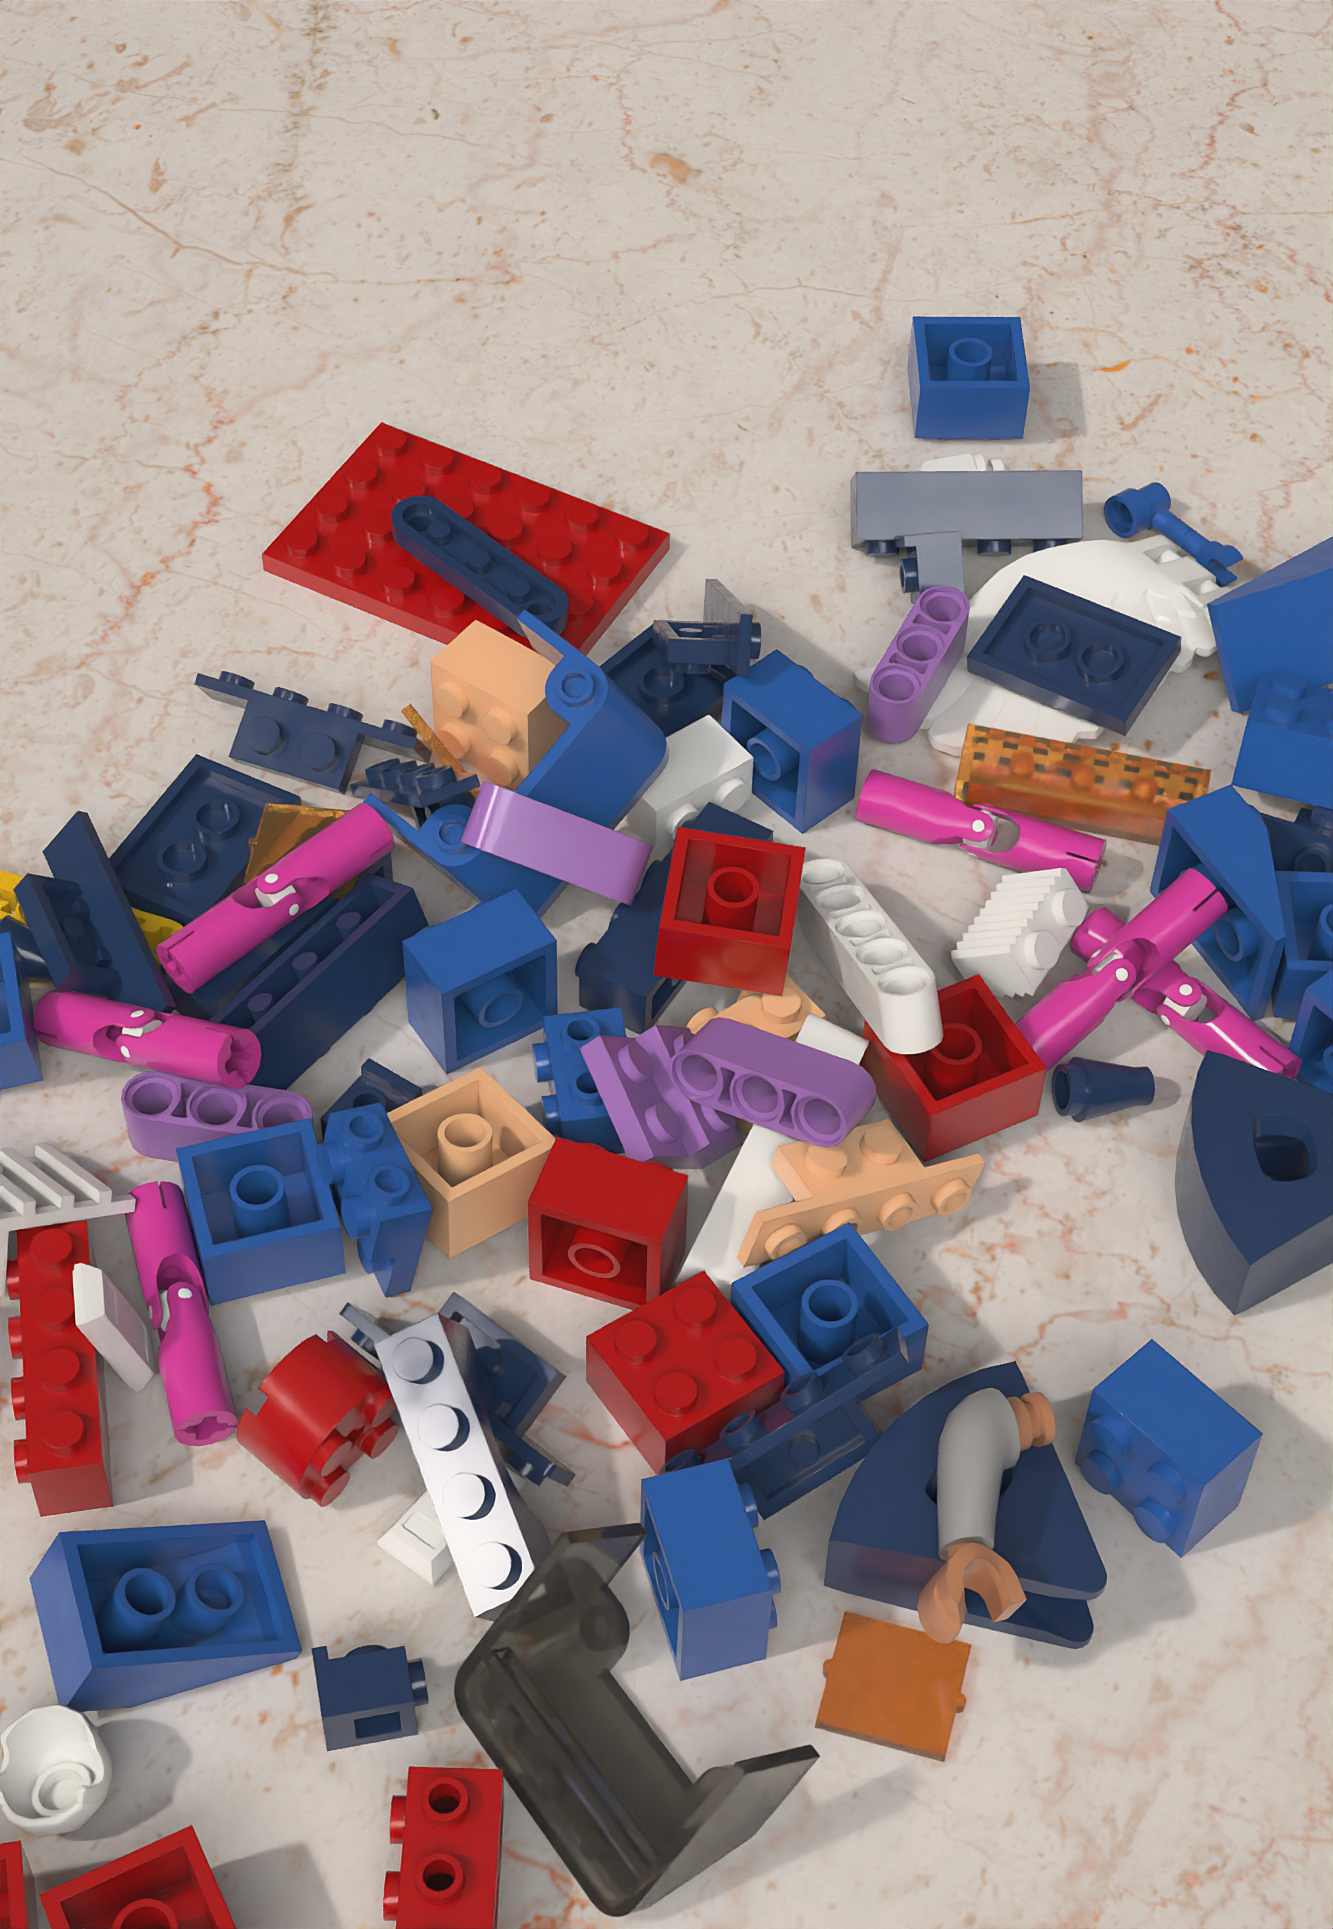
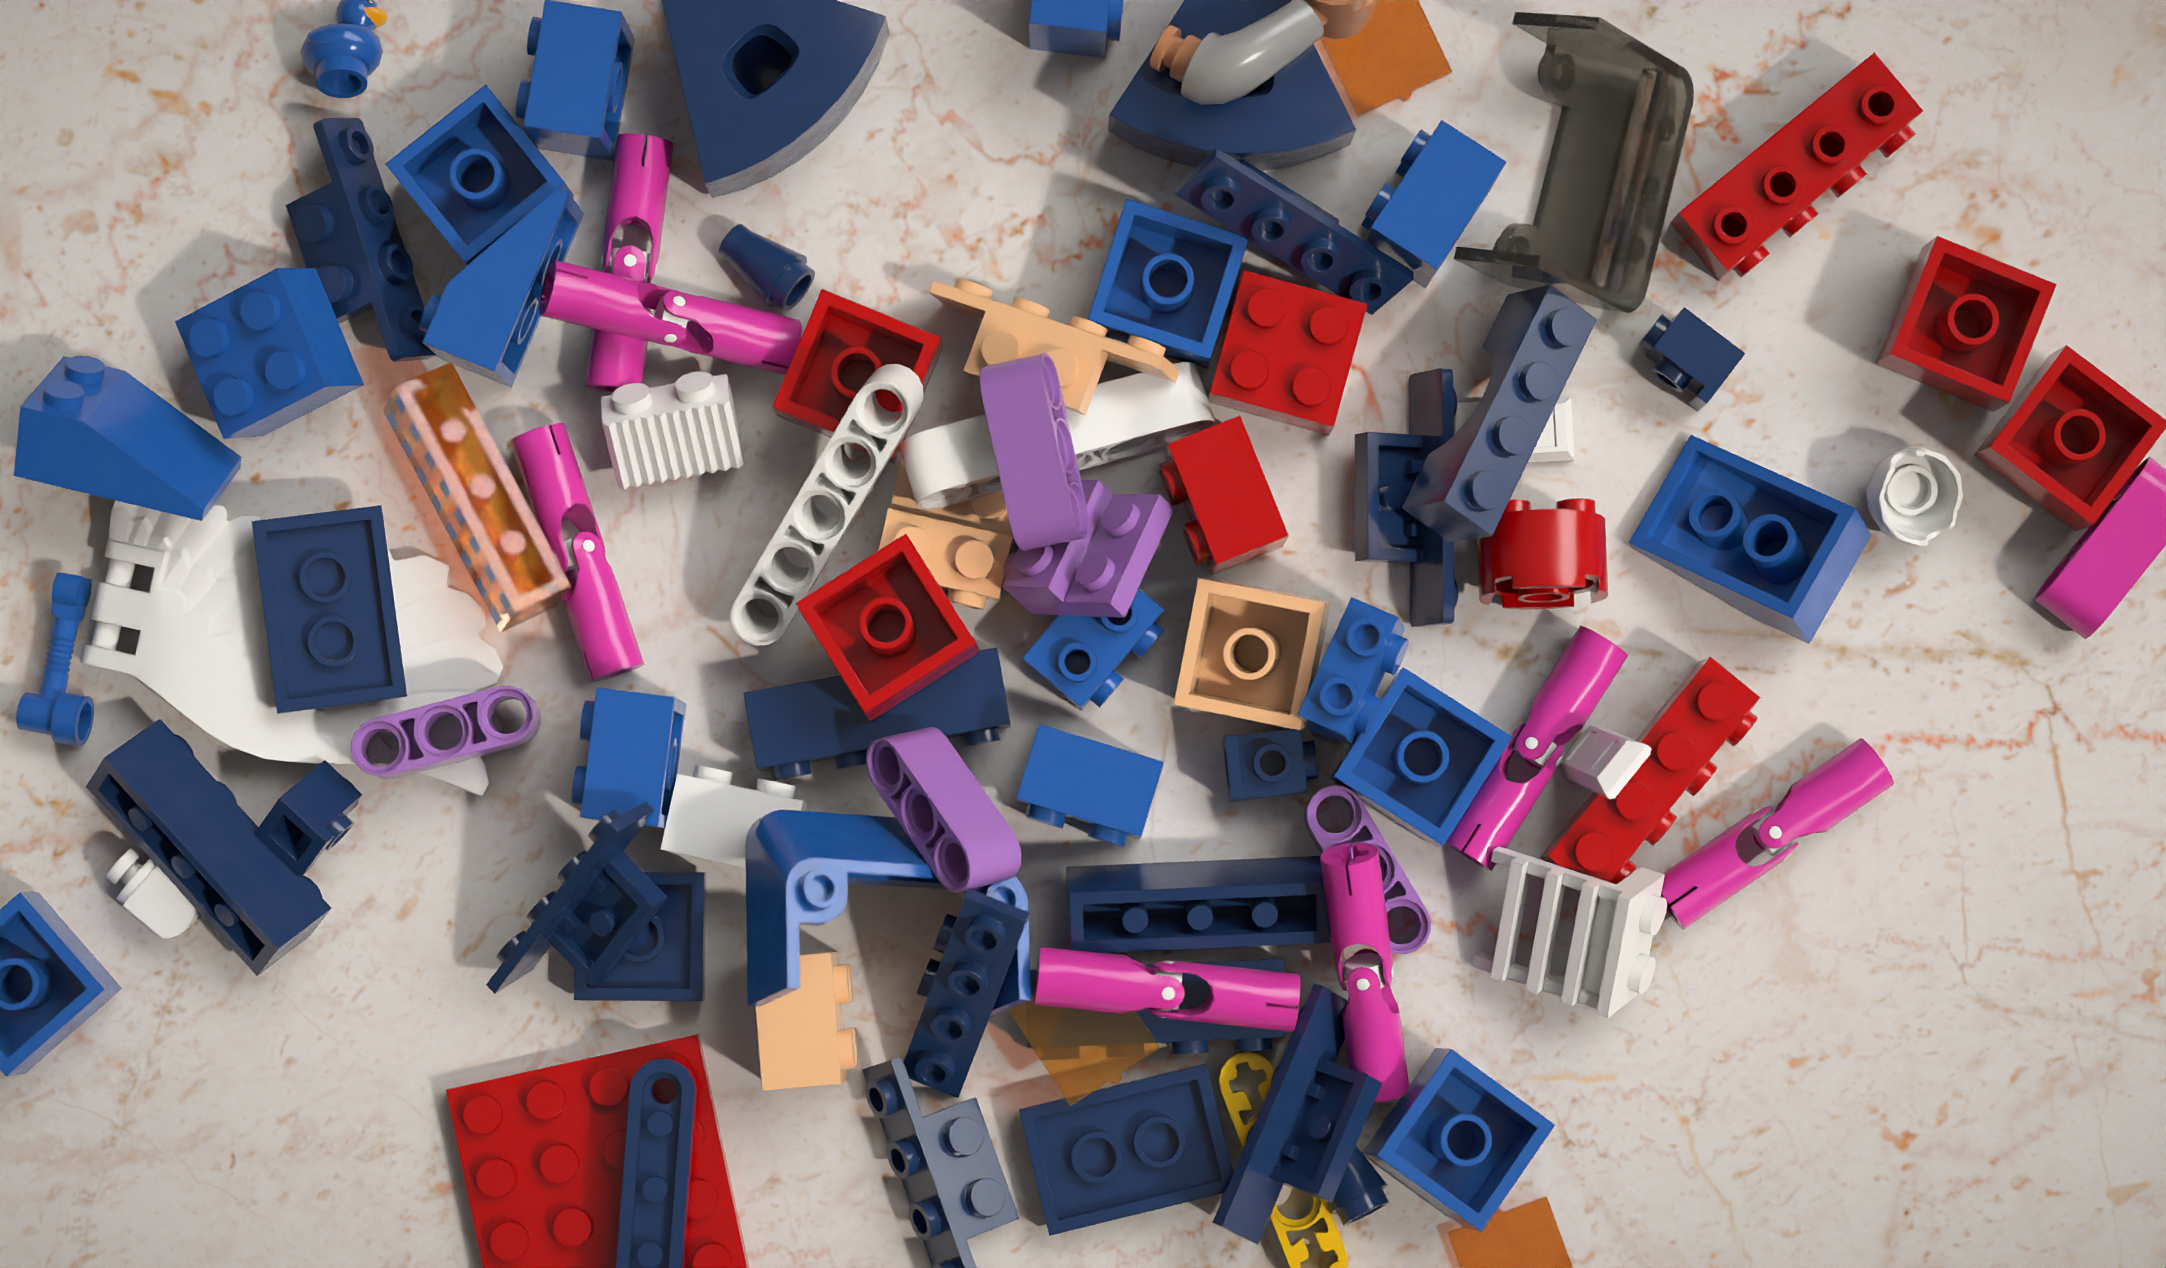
camera: 130 degrees left, 35 degrees up
(433, 741) = (893, 1010): clear orange piece -> none

